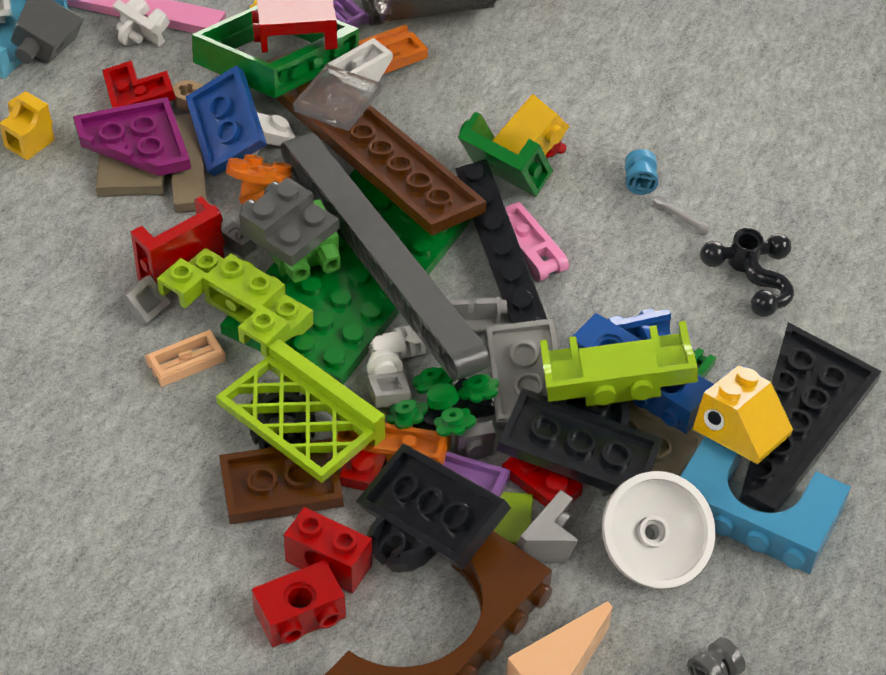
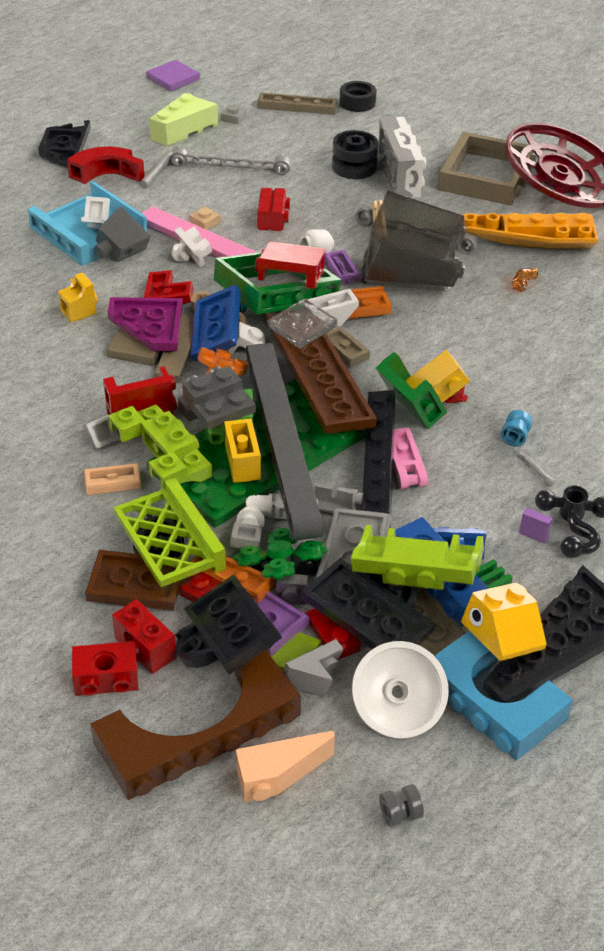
camera: 20 degrees right, 5 degrees down
(344, 282) = (242, 450): none -> yellow brick
(401, 114) = (348, 348): none -> dark tan plate
(715, 287) = (535, 525): none -> medium lavender tile

